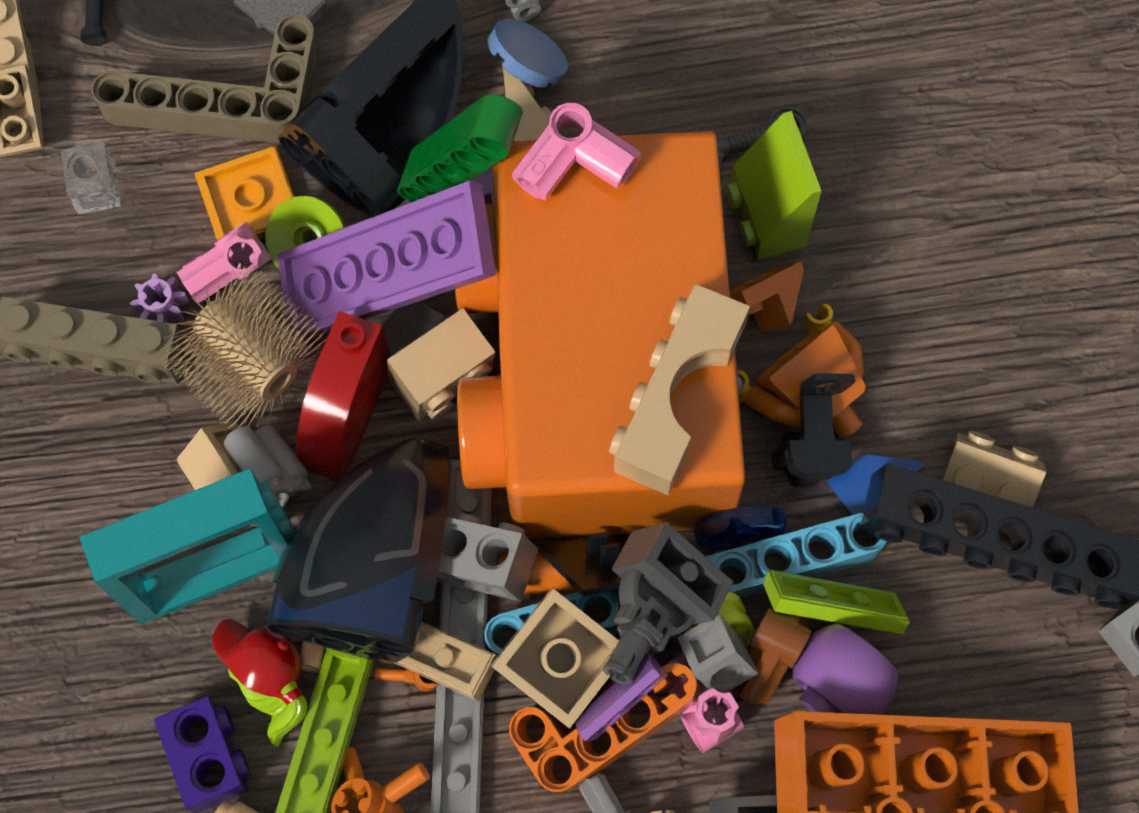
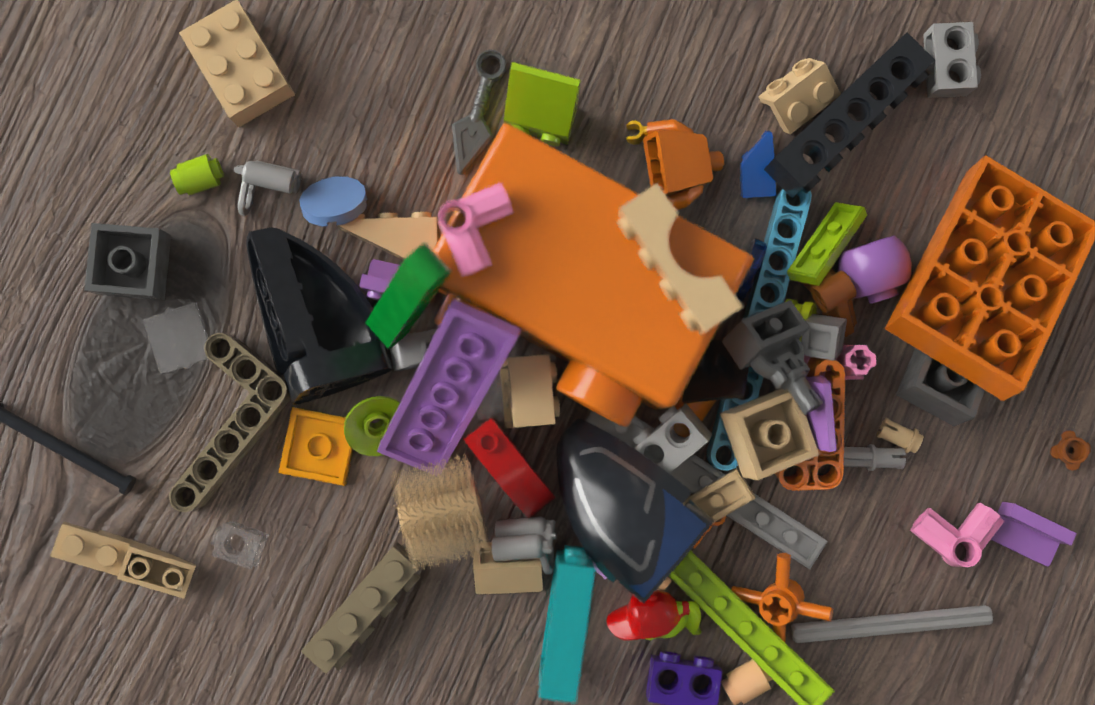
camera: 65 degrees left, 15 degrees up
(163, 292) = (360, 556): lavender gear -> none
(231, 251) = (362, 482): bright pink piece -> none
(771, 296) = (603, 150): orange slope -> none
(814, 452) = (722, 195): black piece -> none

